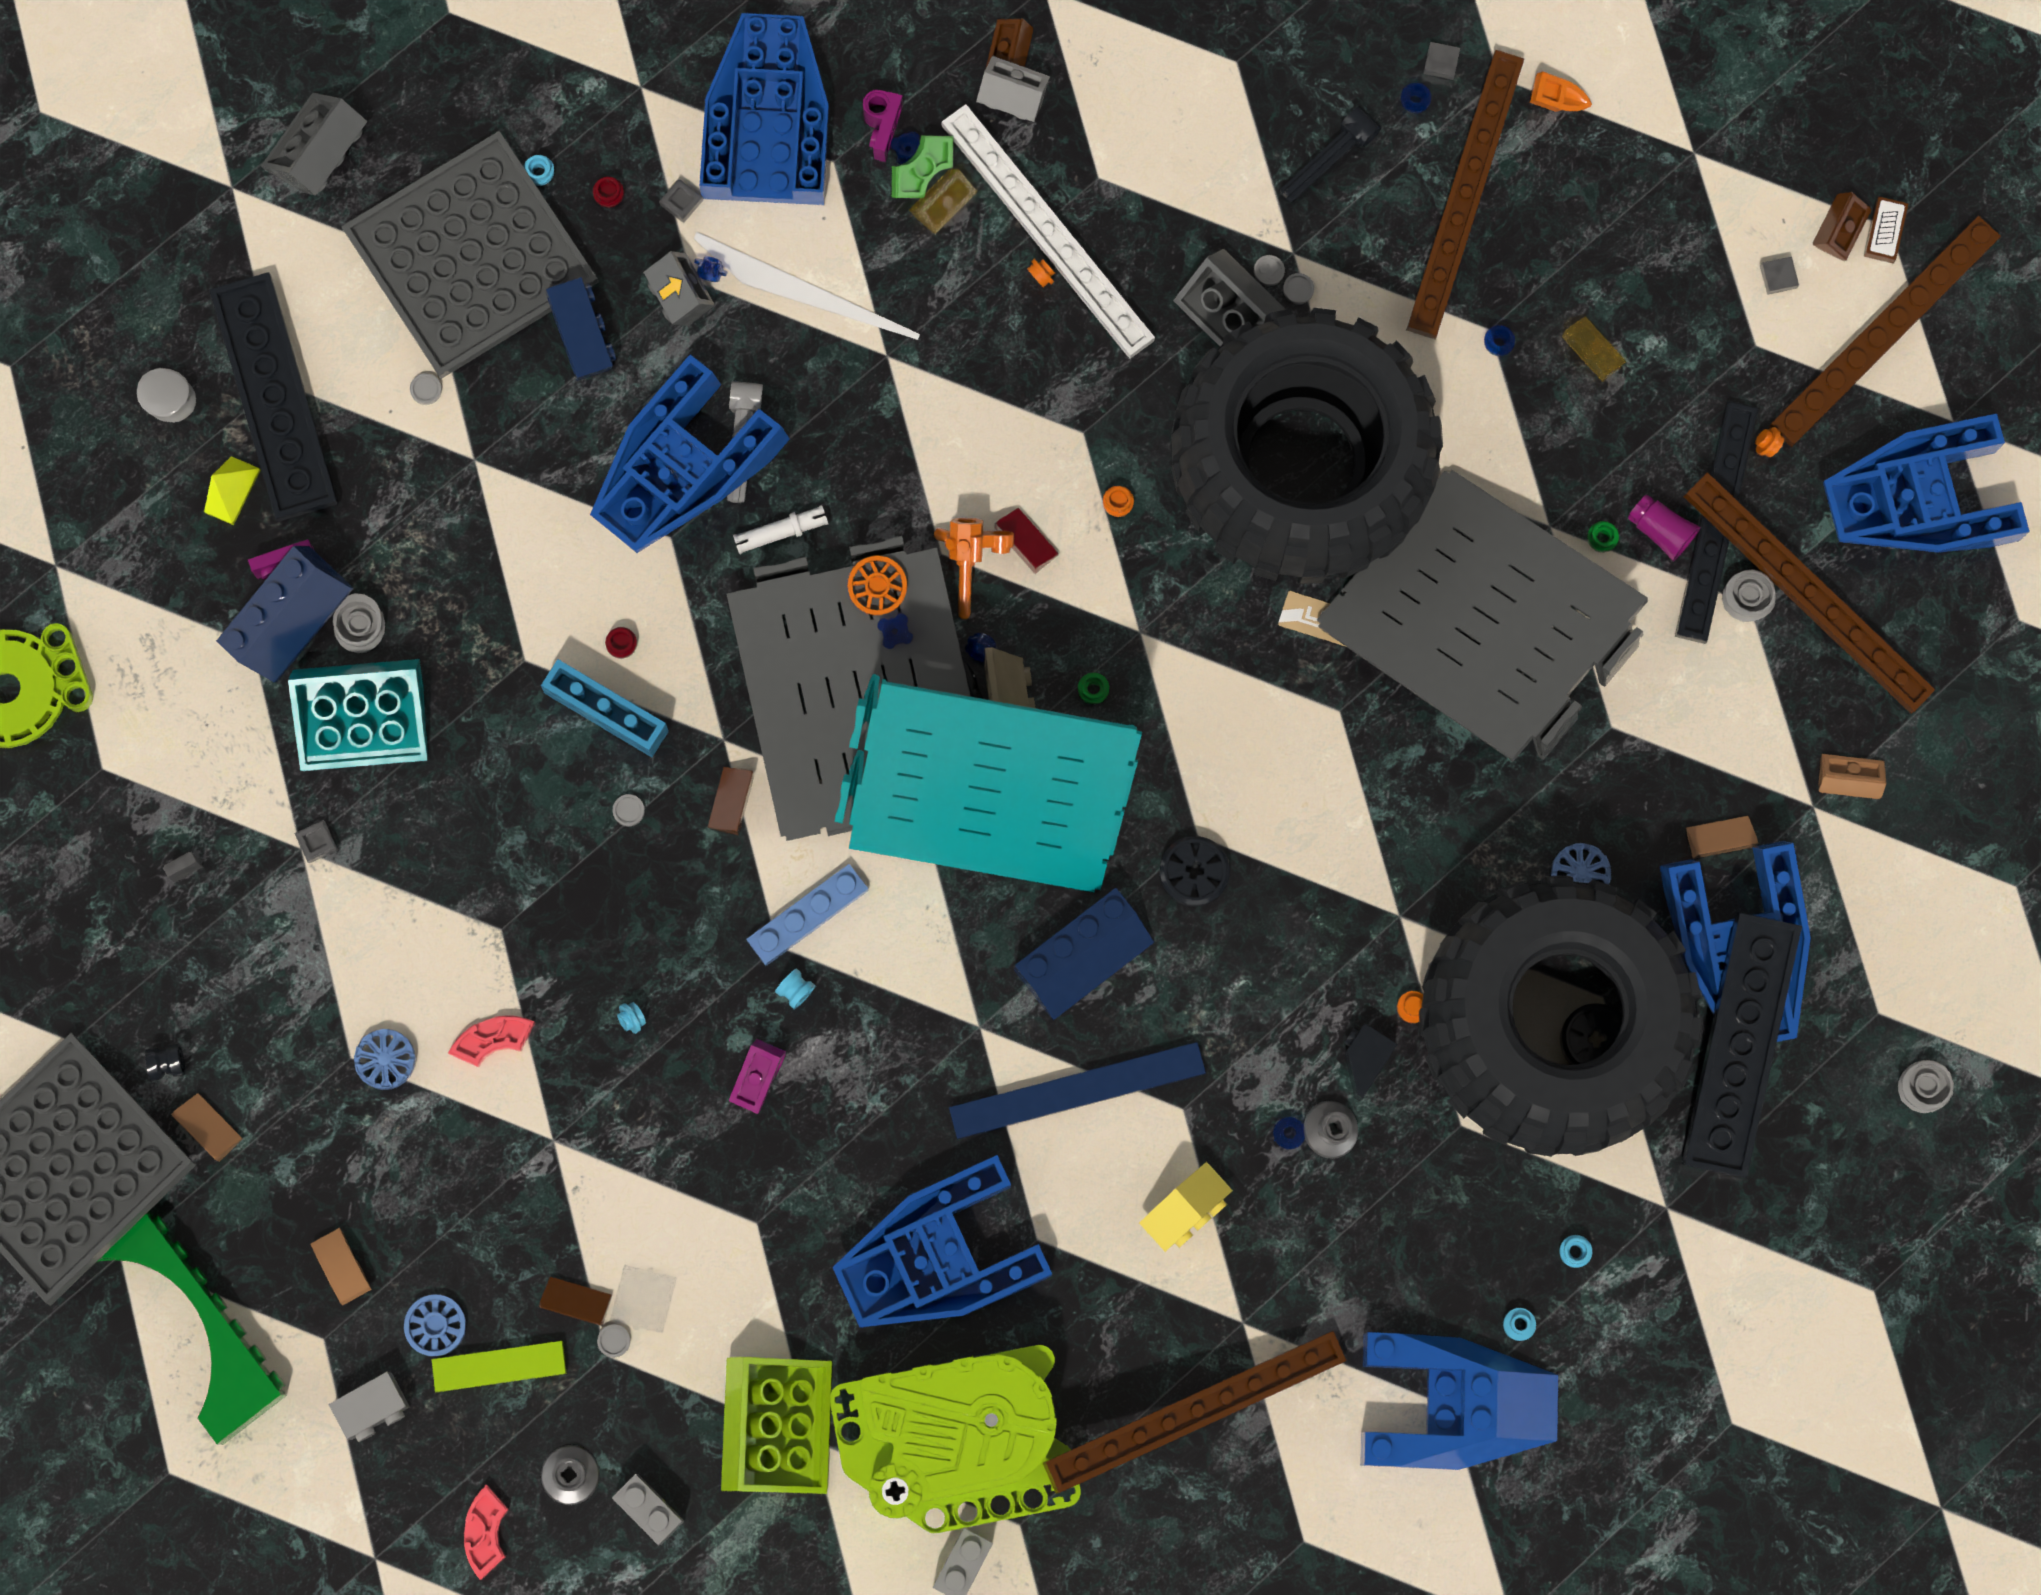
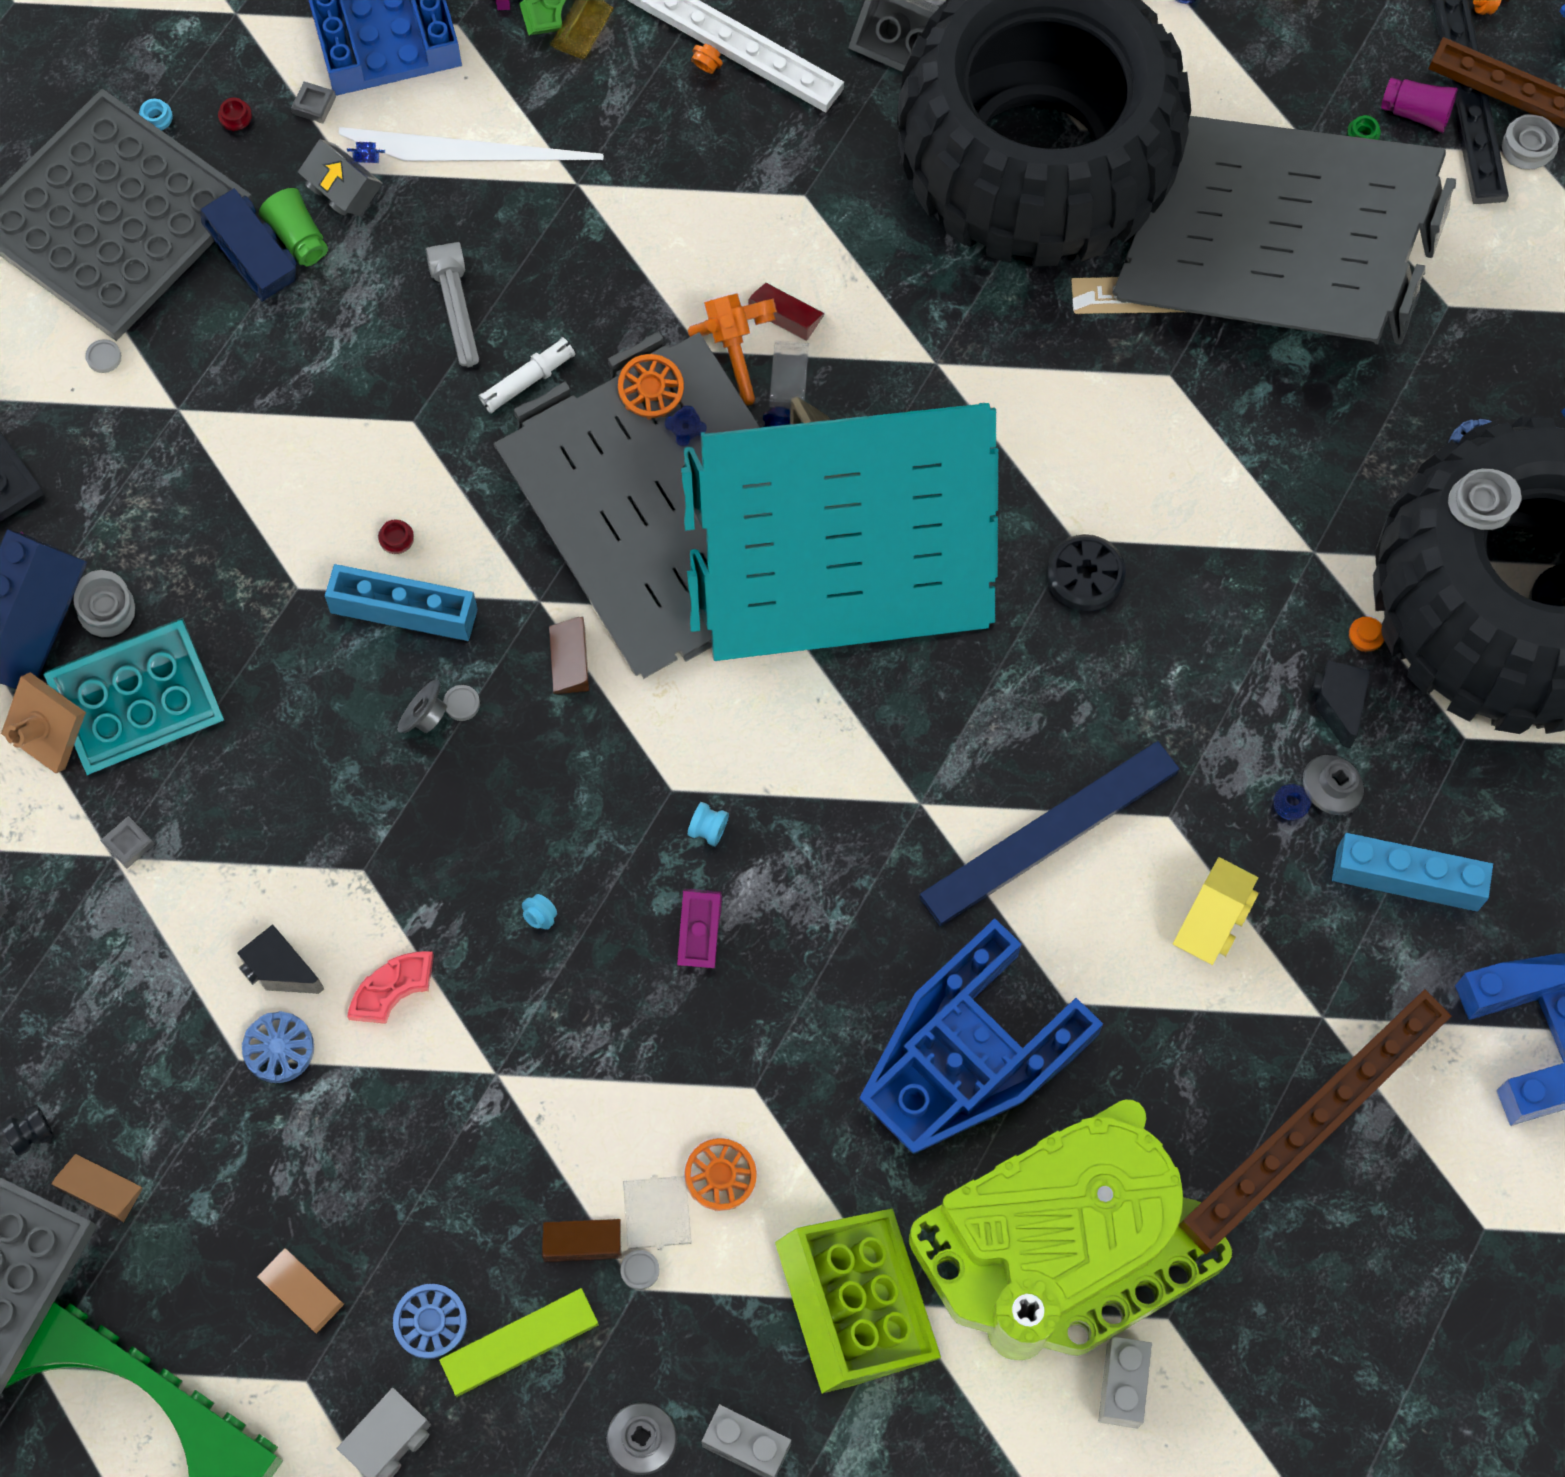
camera: 15 degrees left, 10 degrees down
(275, 718) = (43, 723): none -> medium nougat tile
(404, 990) = (277, 965): none -> black slope
(592, 809) = (423, 710): none -> flat silver piece
(625, 322) = (294, 226): none -> bright green plant
(669, 475) = (391, 350): blue wedge -> none
(703, 1286) = (720, 1174): none -> orange wheel
(807, 914) = (692, 747): medium blue plate -> none
(1007, 602) = (788, 372): none -> clear tile
(1084, 954) = (1003, 690): dark blue slope -> none
(1118, 501) = (866, 244): orange plate -> none
(1363, 1229) = (1412, 872): none -> dark azure brick
(1521, 954) = (1484, 499): none -> light grey piece

